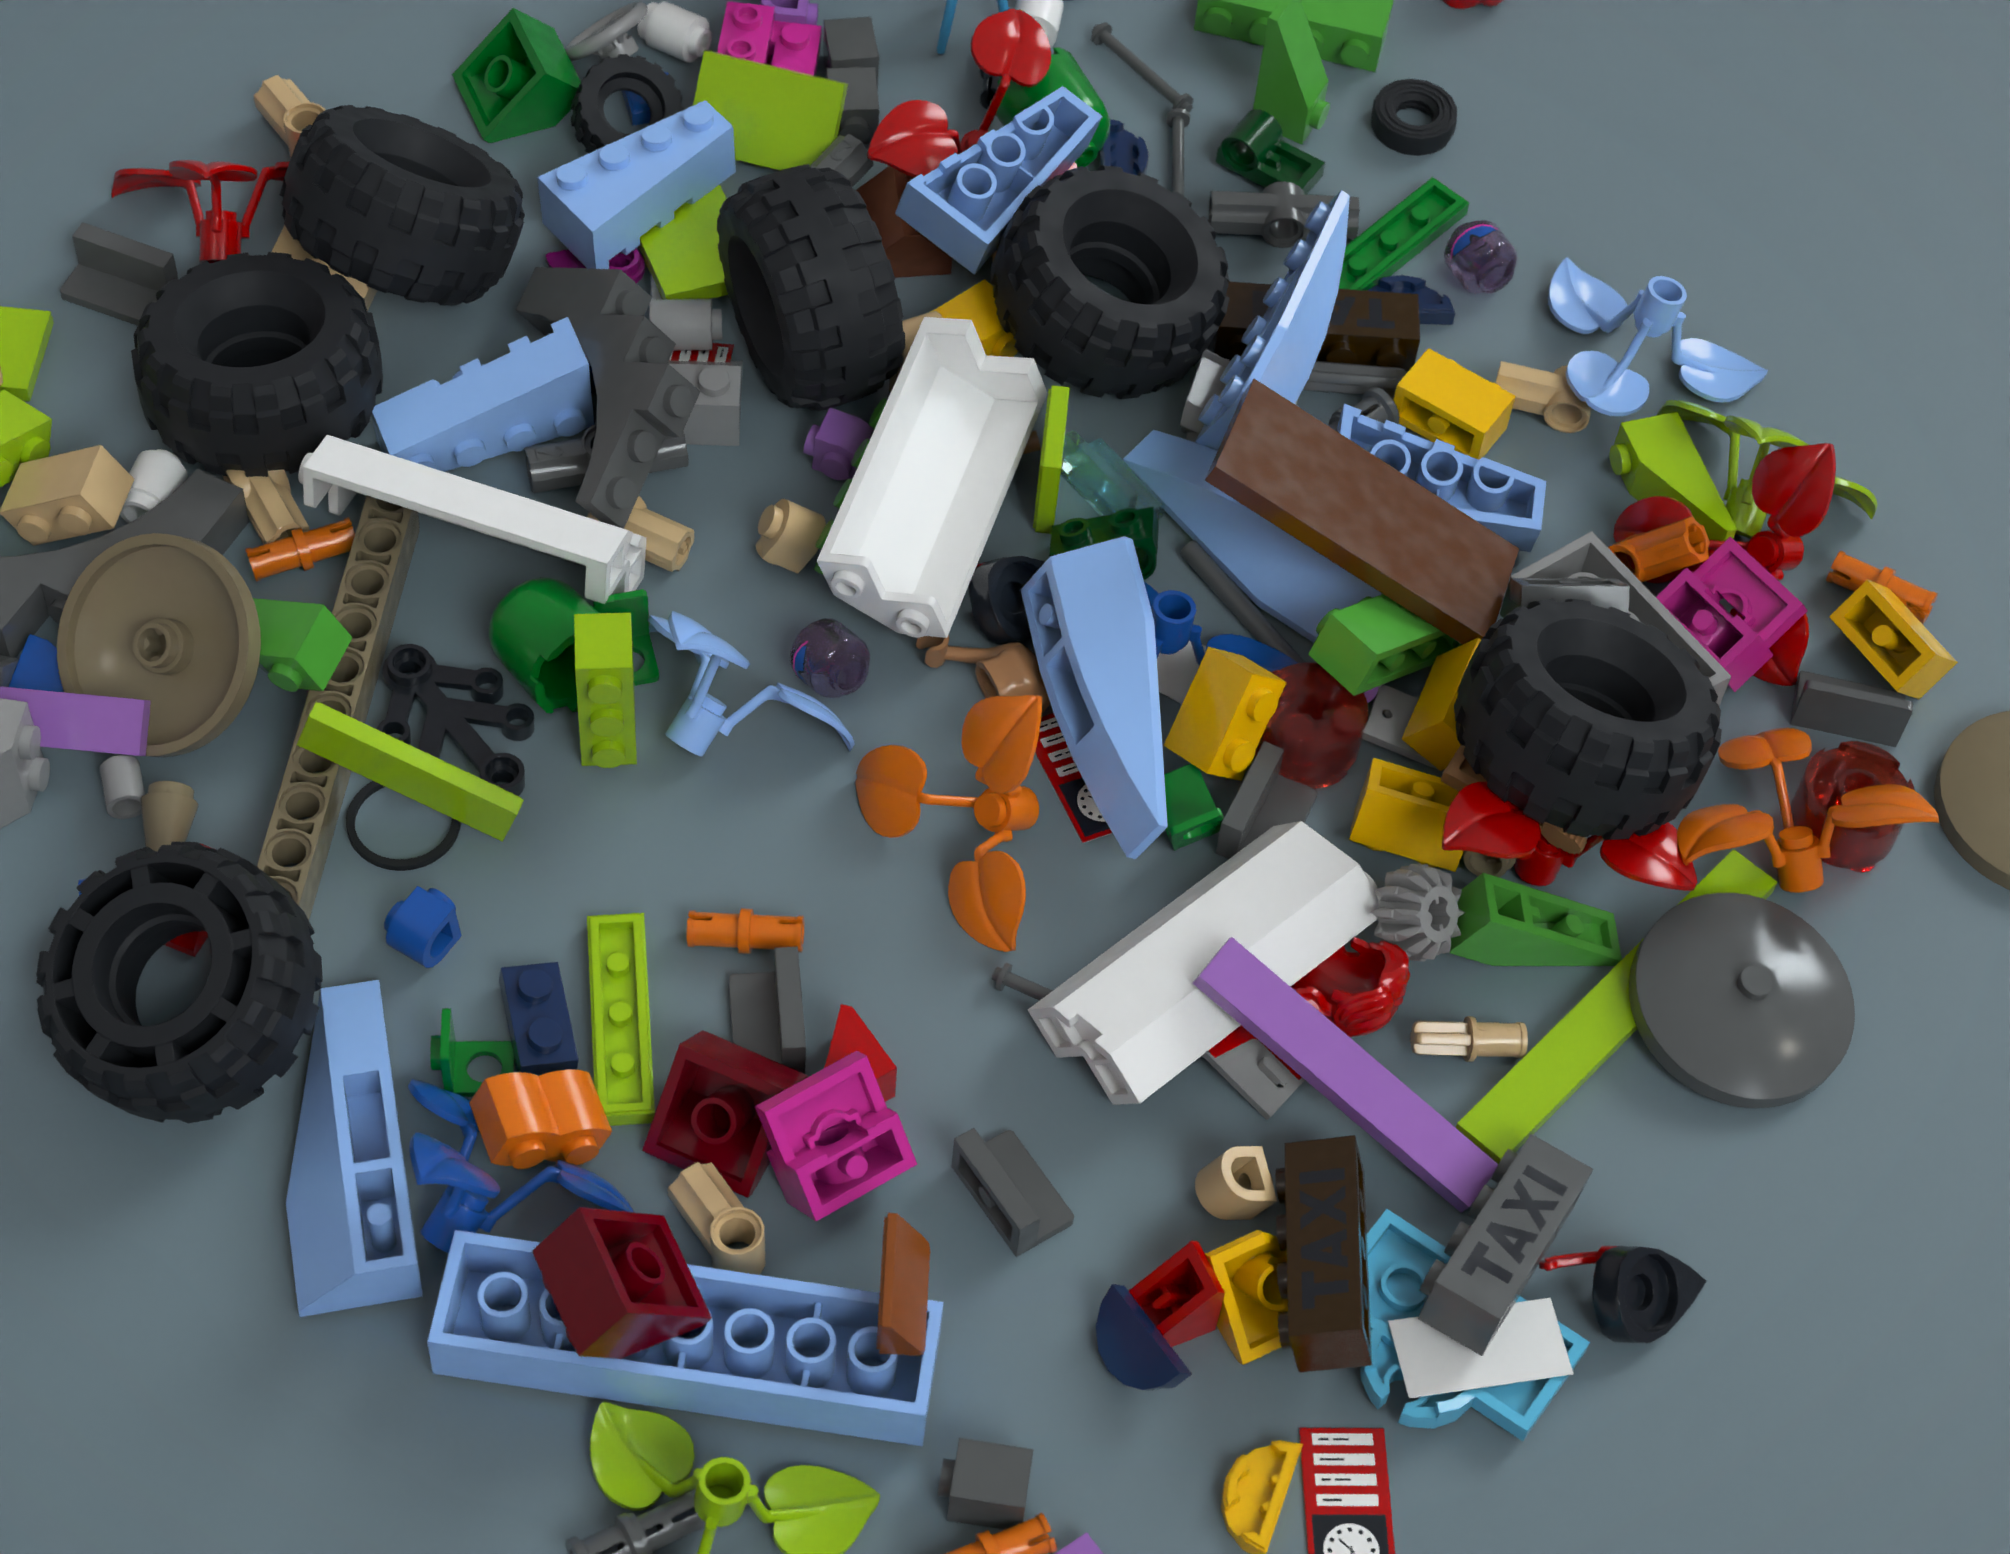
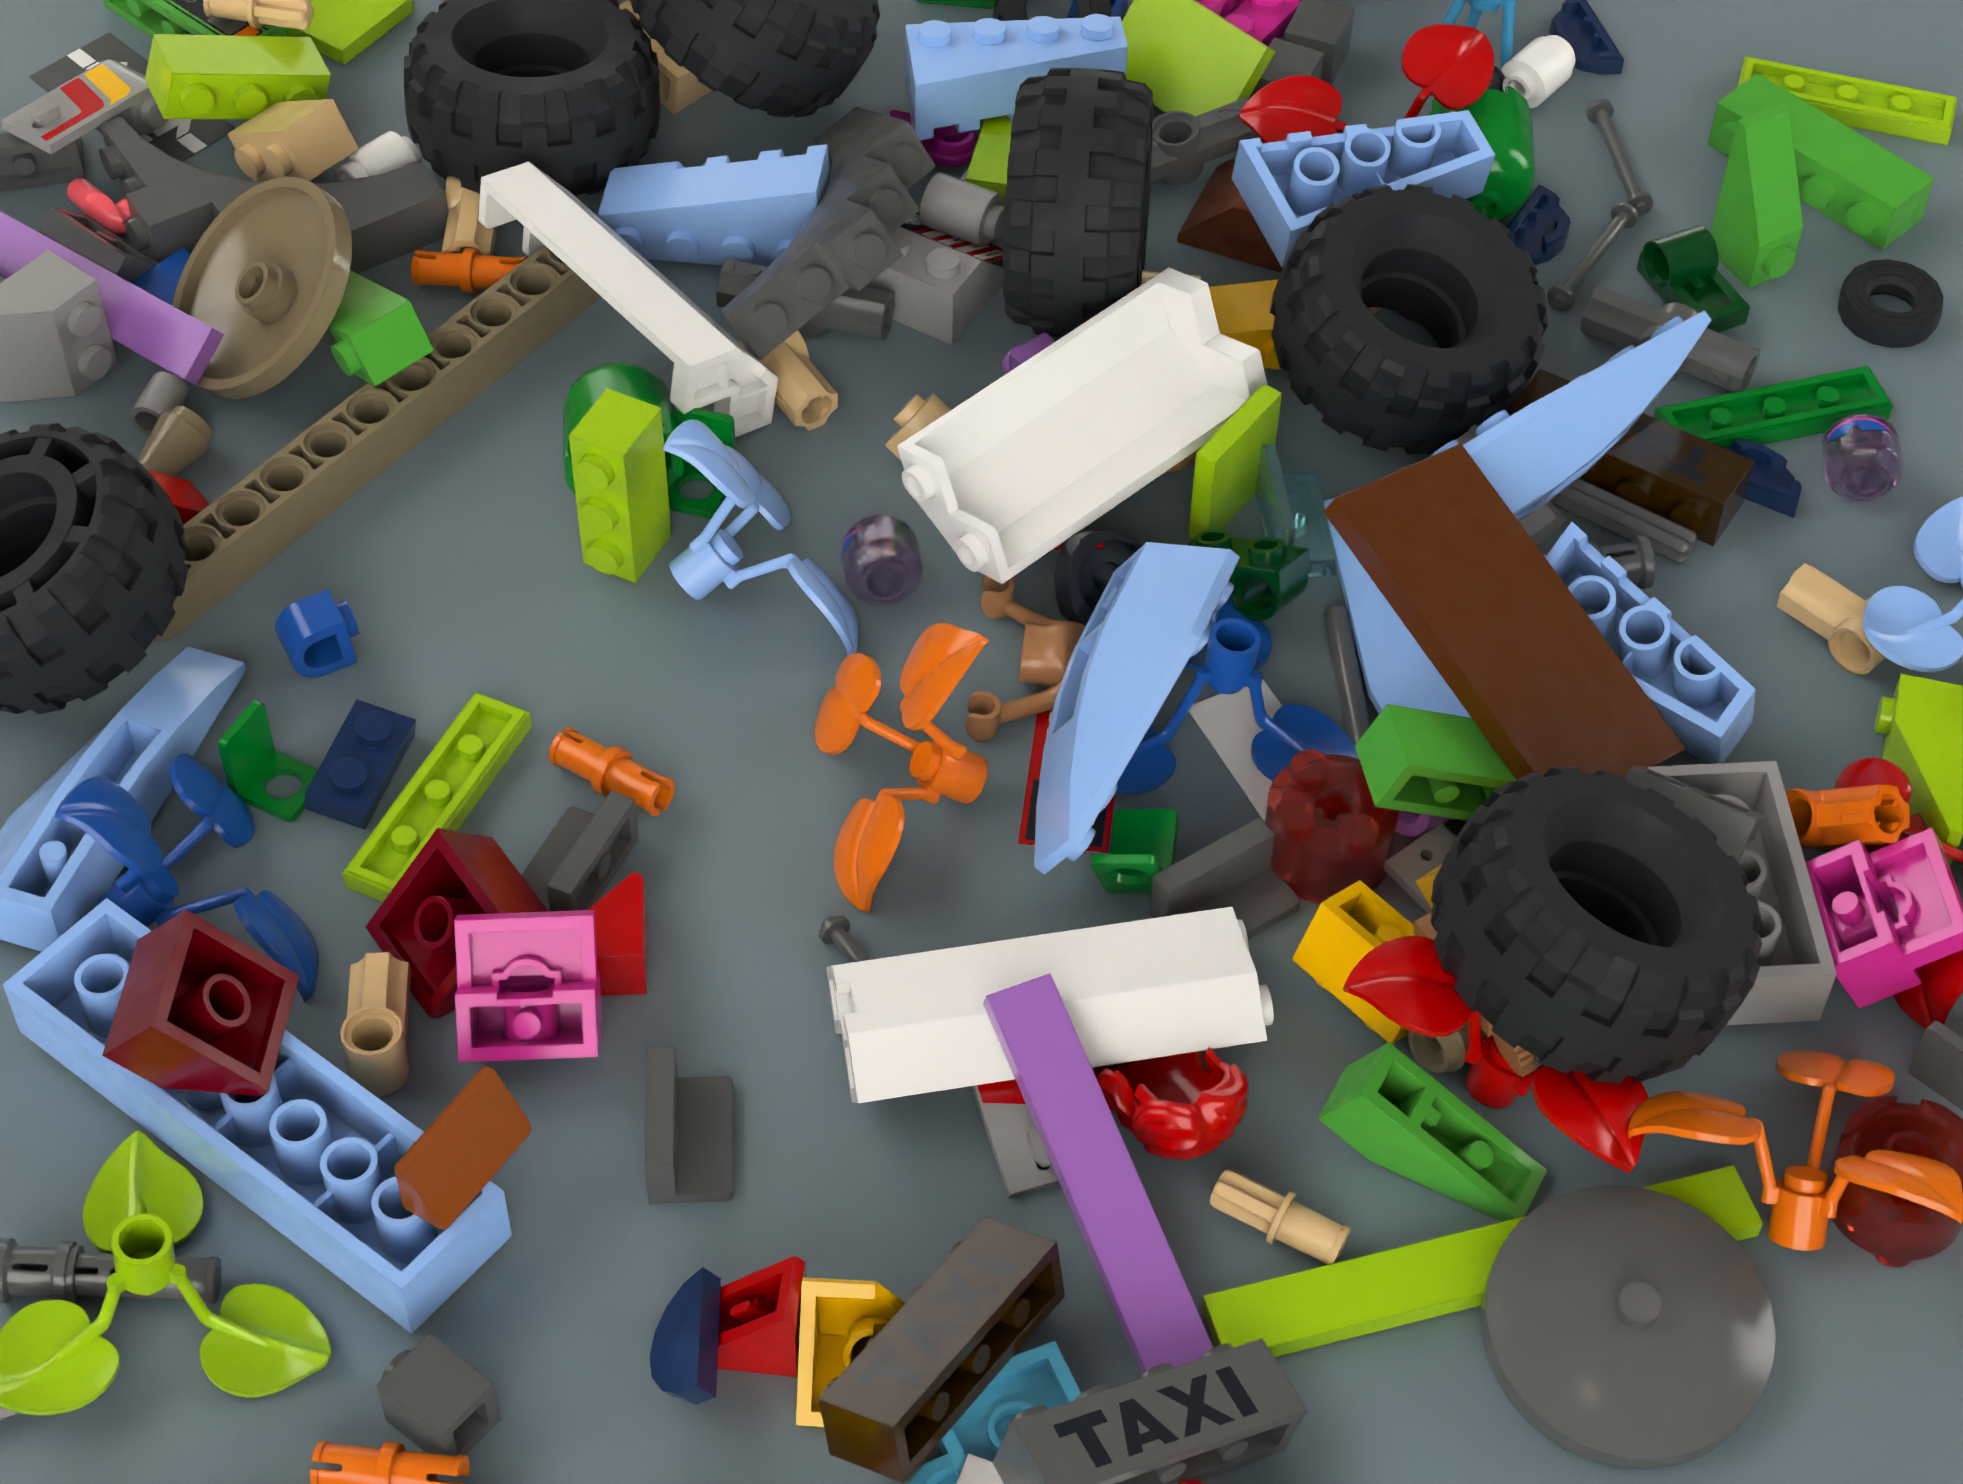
camera: 35 degrees right, 5 degrees down
(387, 863) = (385, 581): black piece -> none
(409, 771) = (397, 487): lime tile -> none
(454, 715) = (486, 414): black plant -> none
(540, 1118) = (280, 844): orange brick -> none
(1224, 714) = (1231, 769): yellow brick -> none
(1236, 1184) = (911, 1236): tan plate -> none
(1418, 911) = (1295, 1053): light grey gear -> none
(1452, 405) = (1720, 586): yellow brick -> none

